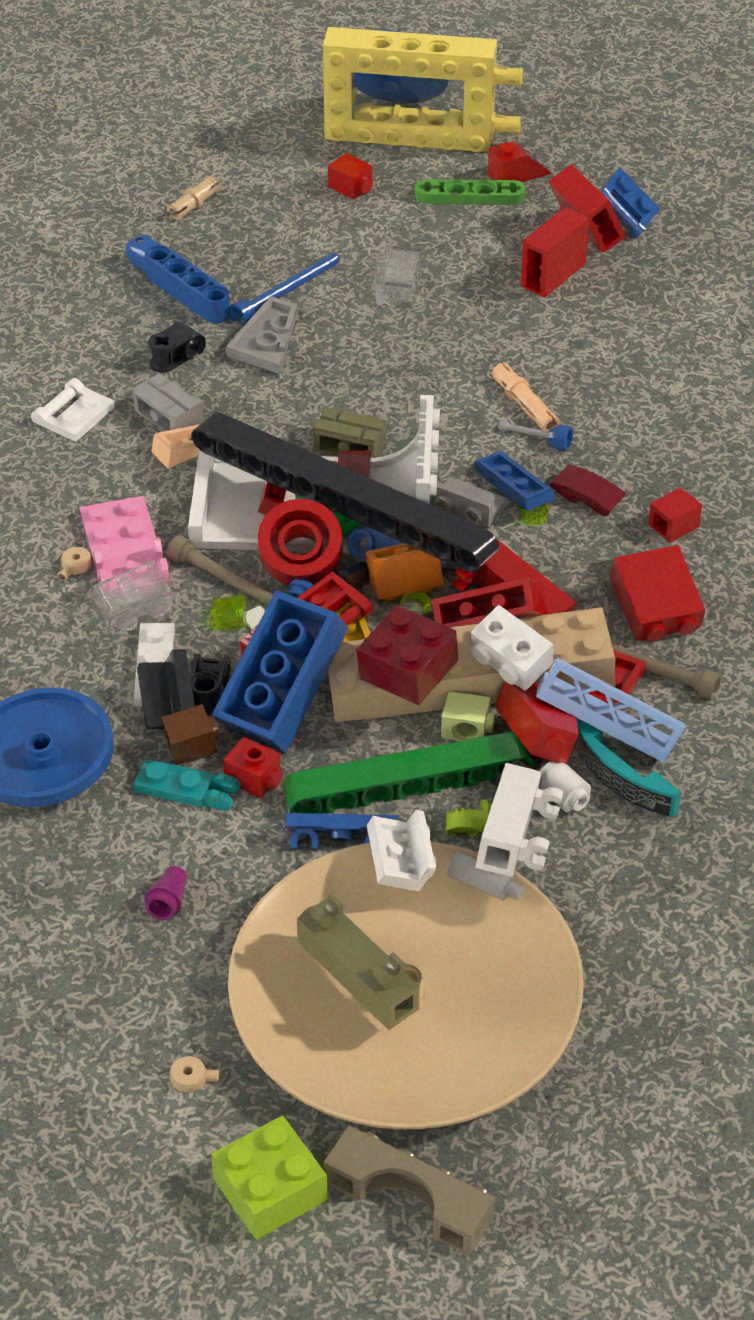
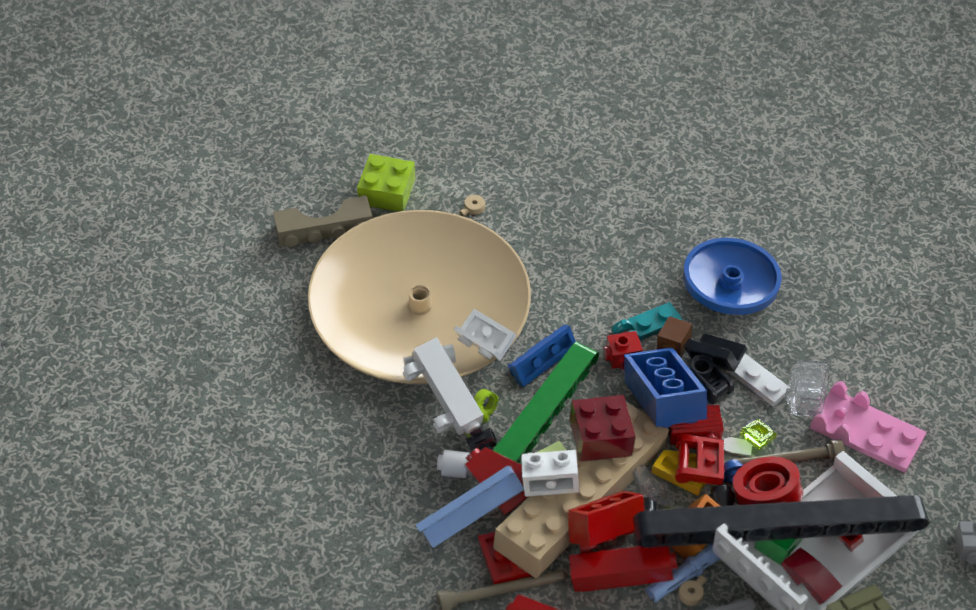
camera: 135 degrees right, 5 degrees up
(75, 561) = (879, 399): tan piece -> none
(166, 894) = (582, 264): magenta cone -> none
(174, 446) = (943, 511): light nougat slope -> none
(358, 962) = (442, 268): olive brick -> none
(650, 793) = (425, 491): slope -> none

